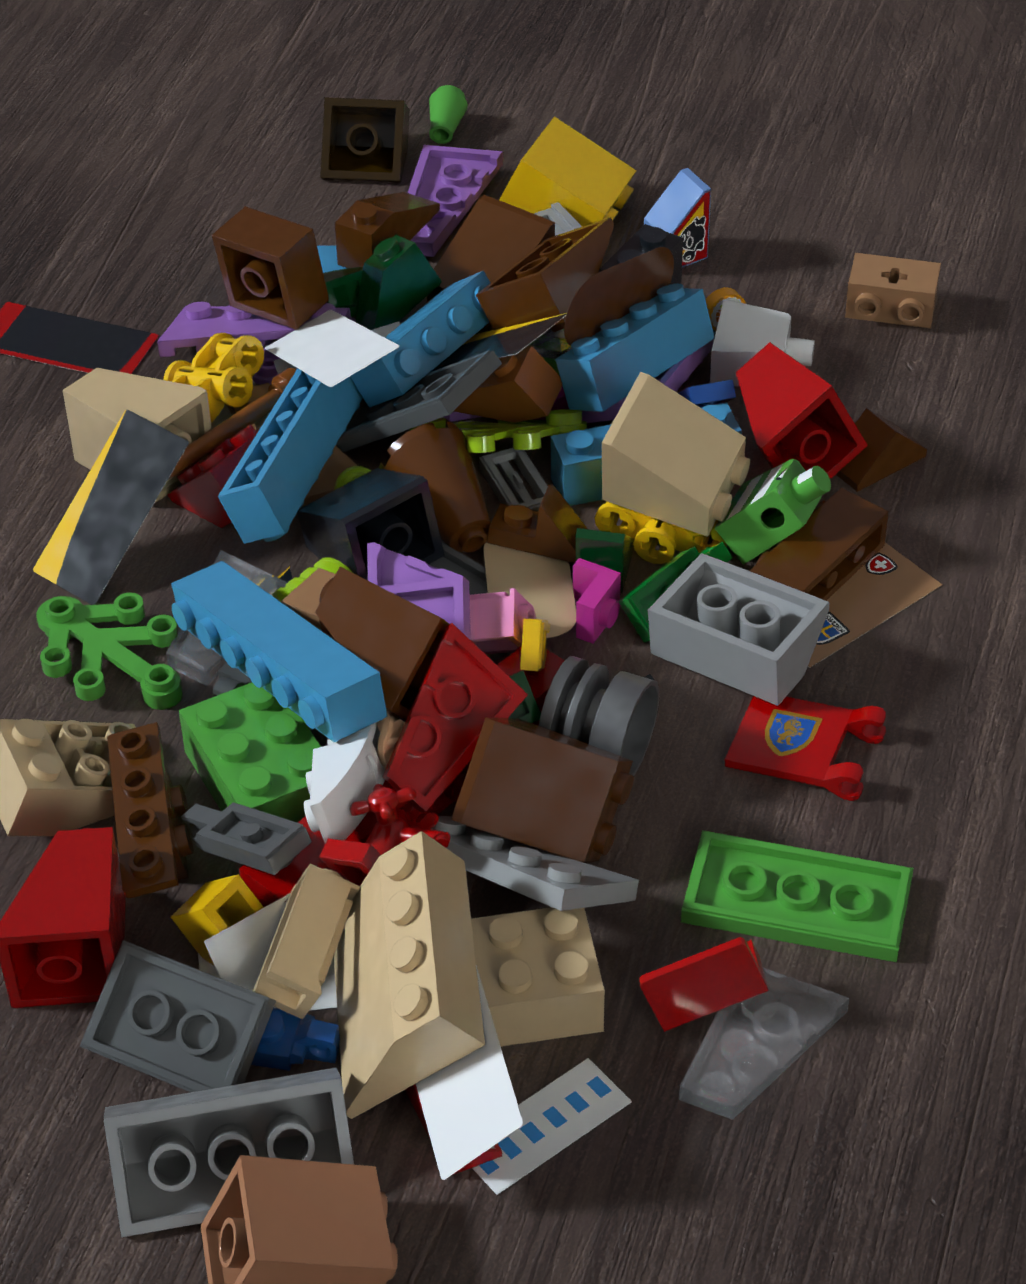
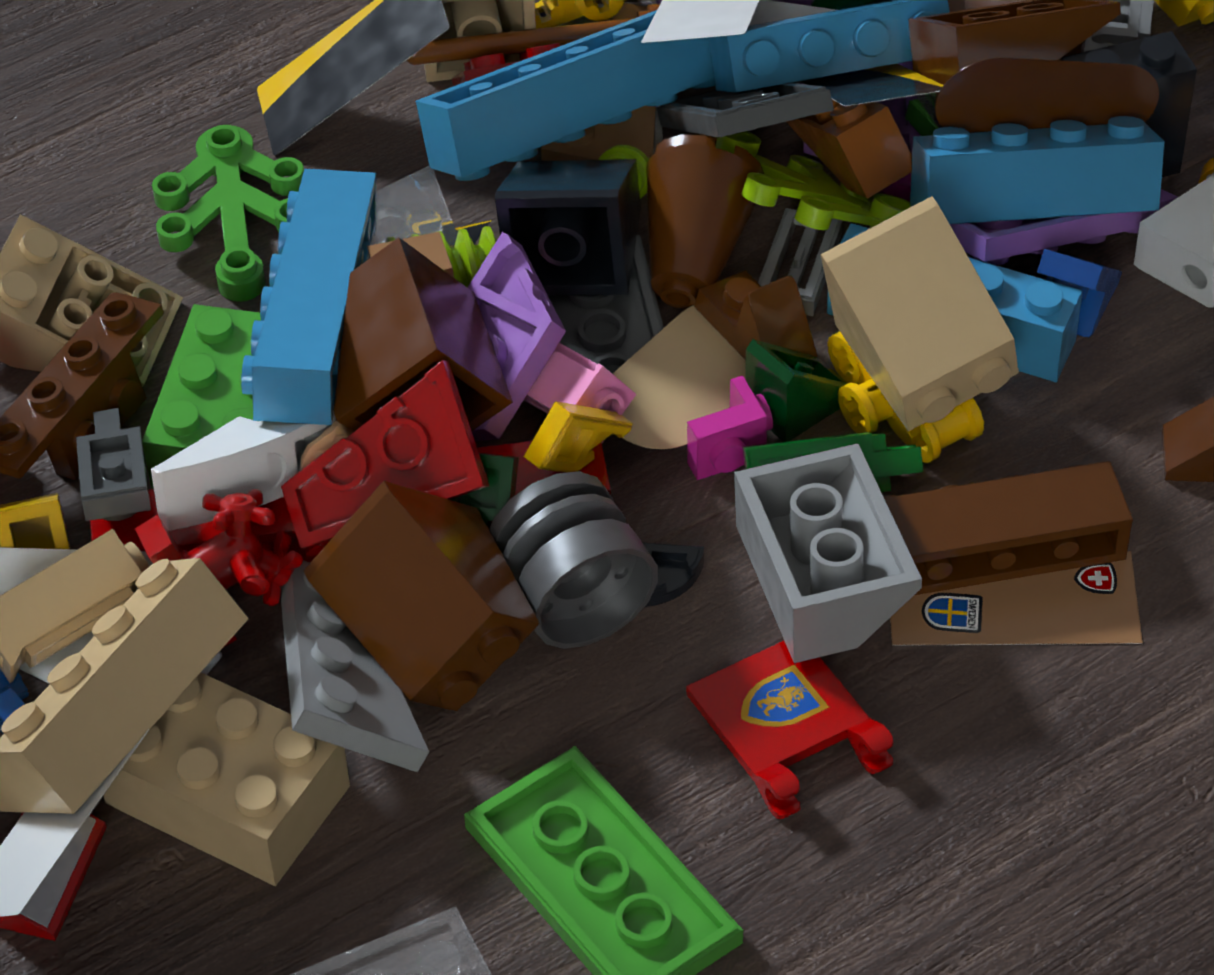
camera: 40 degrees right, 5 degrees up
(552, 1122) = (132, 940): white sticker -> none
(704, 983) = (382, 900): red panel -> none
(783, 498) = (1016, 436): bright green torso -> none
(796, 413) = (1127, 357): red slope -> none

